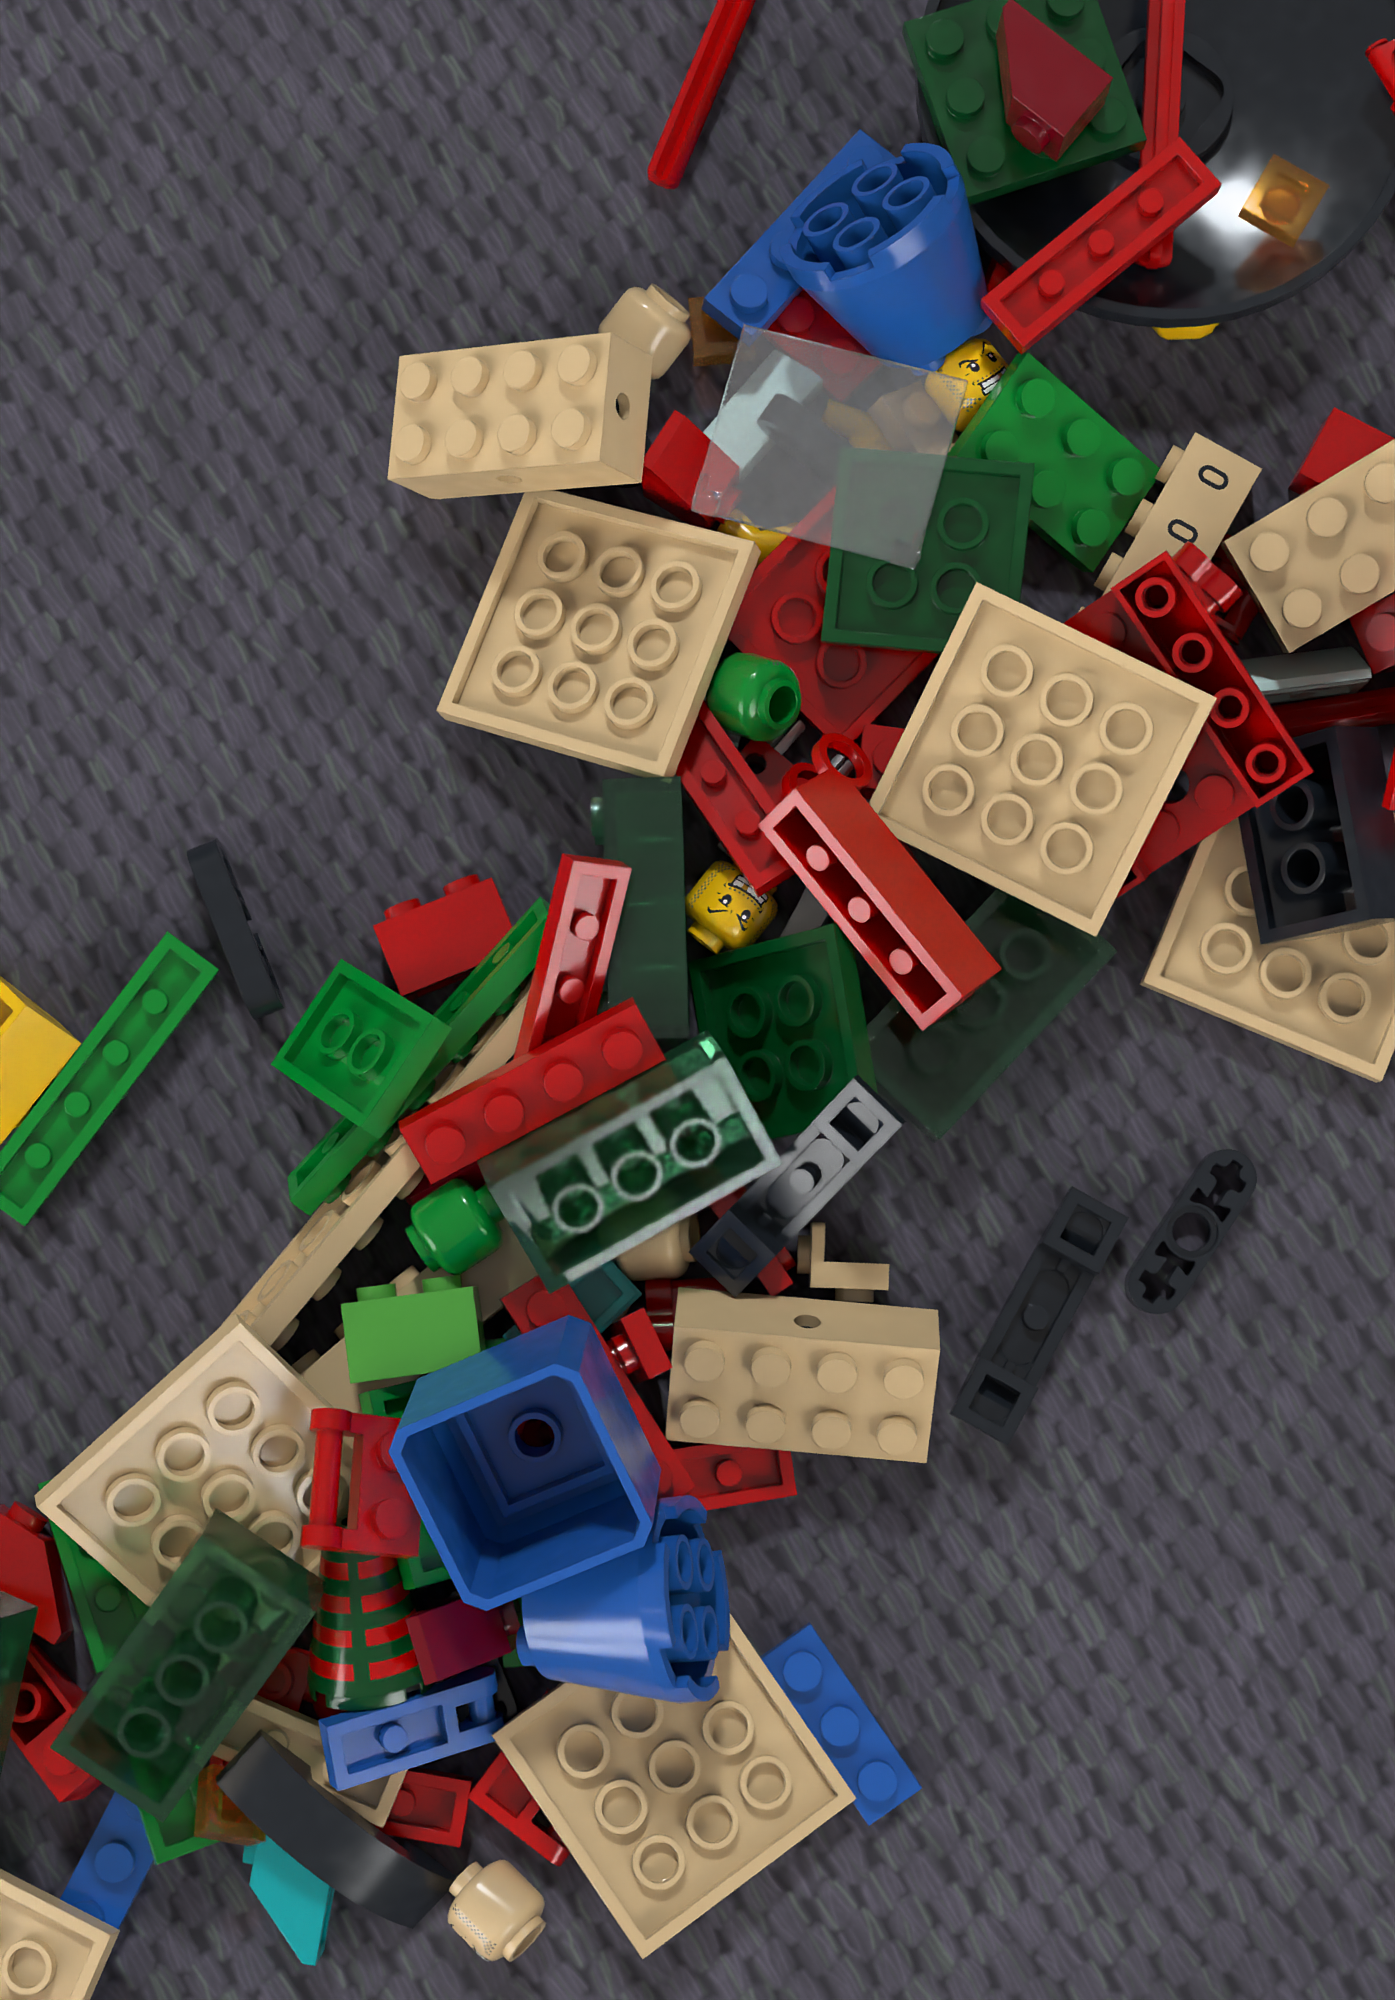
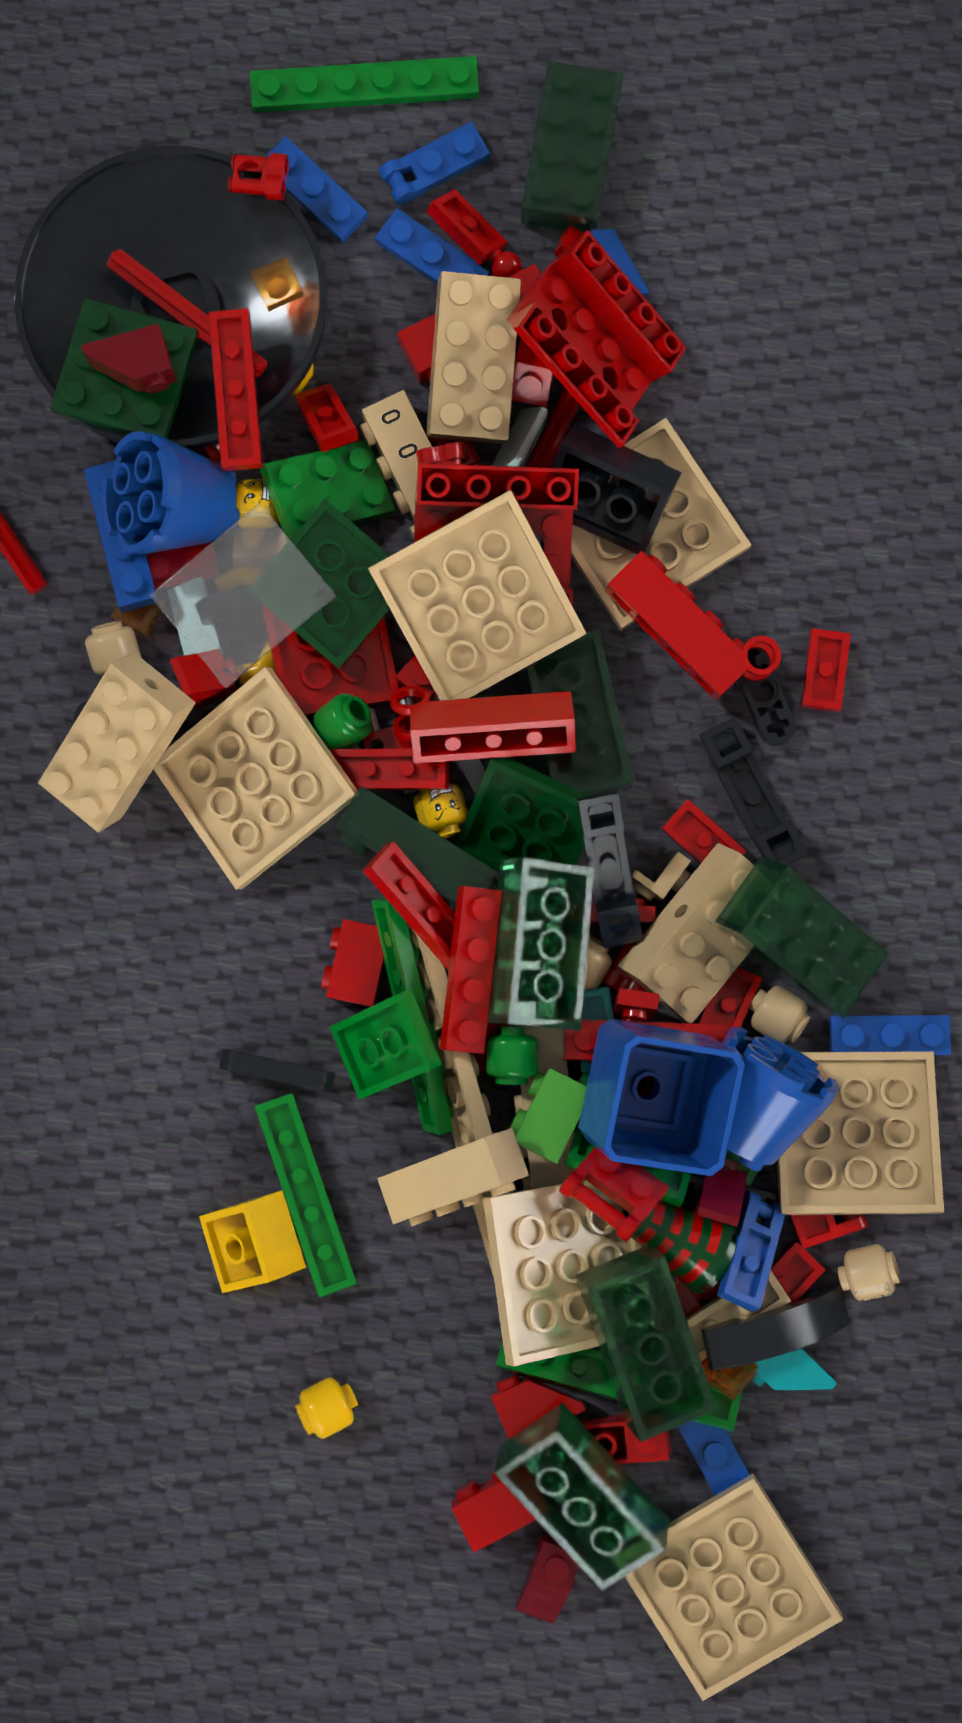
camera: 60 degrees left, 0 degrees up
(242, 1258) = (454, 1176): none -> tan brick
(763, 1552) = (779, 1014): none -> tan head
(885, 1510) = (802, 936): none -> clear green brick
(935, 1276) = (697, 832): none -> red plate
(1152, 394) = (326, 417): none -> red plate
(1198, 1067) = (684, 630): none -> red hinge
(1279, 1299) = (825, 670): none -> red plate

